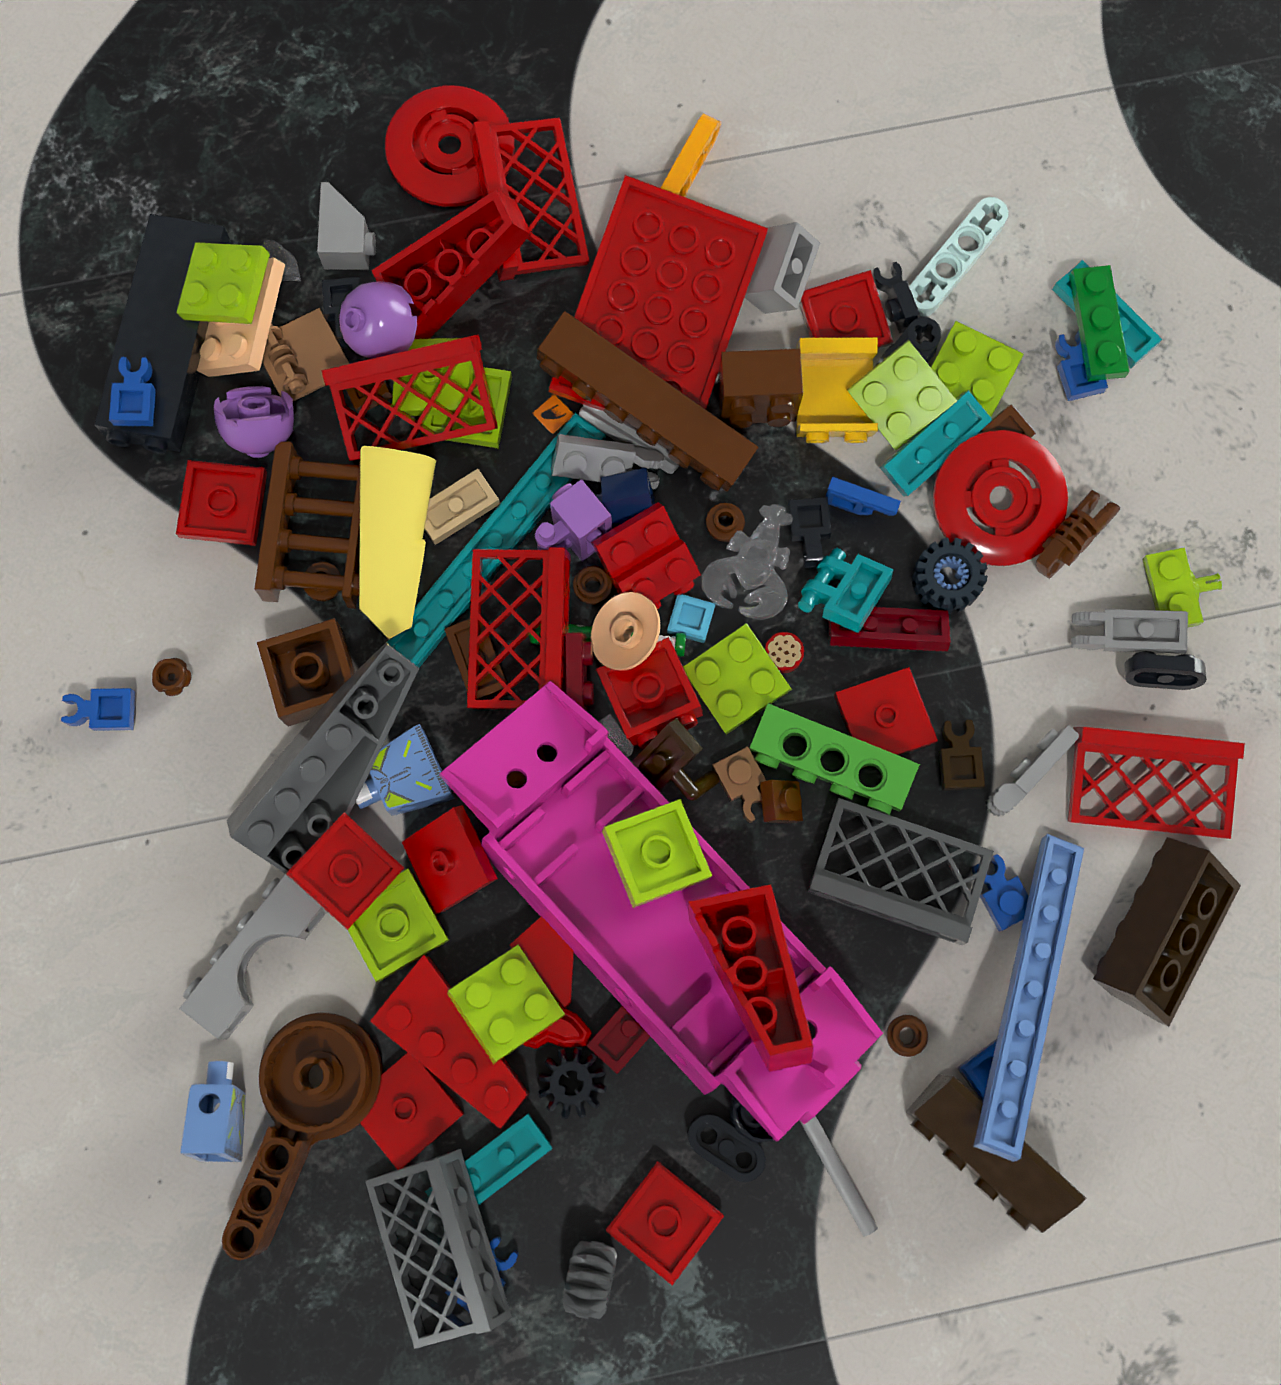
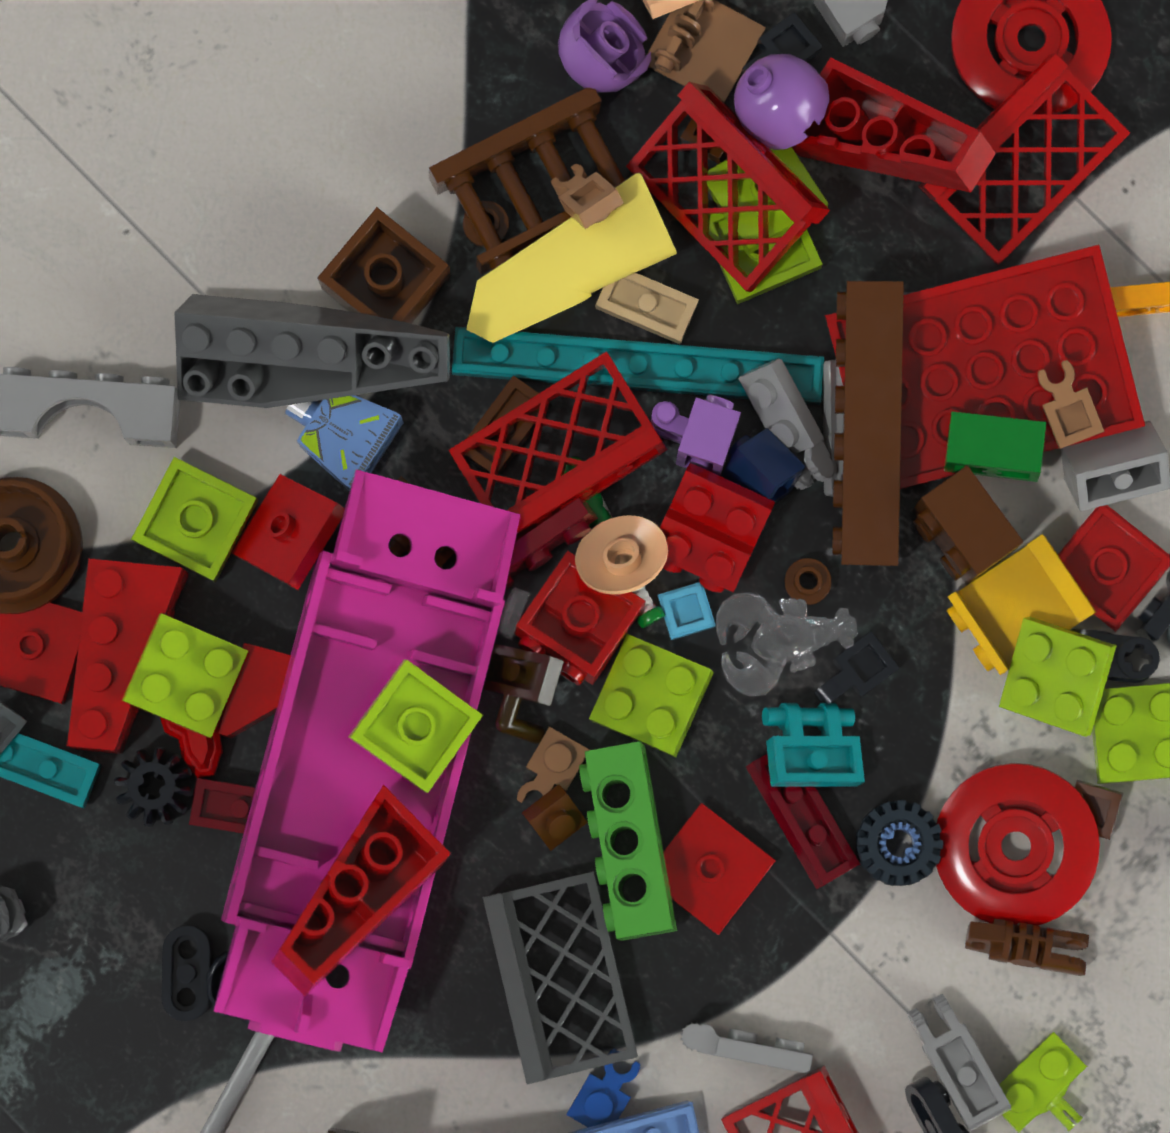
camera: 60 degrees right, 5 degrees up
(105, 710) = (225, 105): blue plate -> none
(164, 669) = (297, 132): reddish brown plate -> none
(221, 502) = (500, 72): red plate -> none
(345, 871) = (213, 440): red plate -> none
(356, 490) = (587, 198): none -> medium nougat plate
(553, 414) = (810, 335): orange sticker -> none
(588, 574) = (654, 476): reddish brown plate -> none
(664, 1223) = (81, 958): red plate -> none
(718, 329) = (995, 446): none -> green hinge
(729, 266) = (1071, 413): none -> medium nougat plate
(785, 651) = (711, 726): tan tile -> none
(859, 499) = (918, 703): blue tile -> none
(920, 1035) = (389, 1088): reddish brown plate -> none
(934, 443) = (1029, 741): teal plate -> none
(960, 764) = (709, 974): dark brown plate -> none

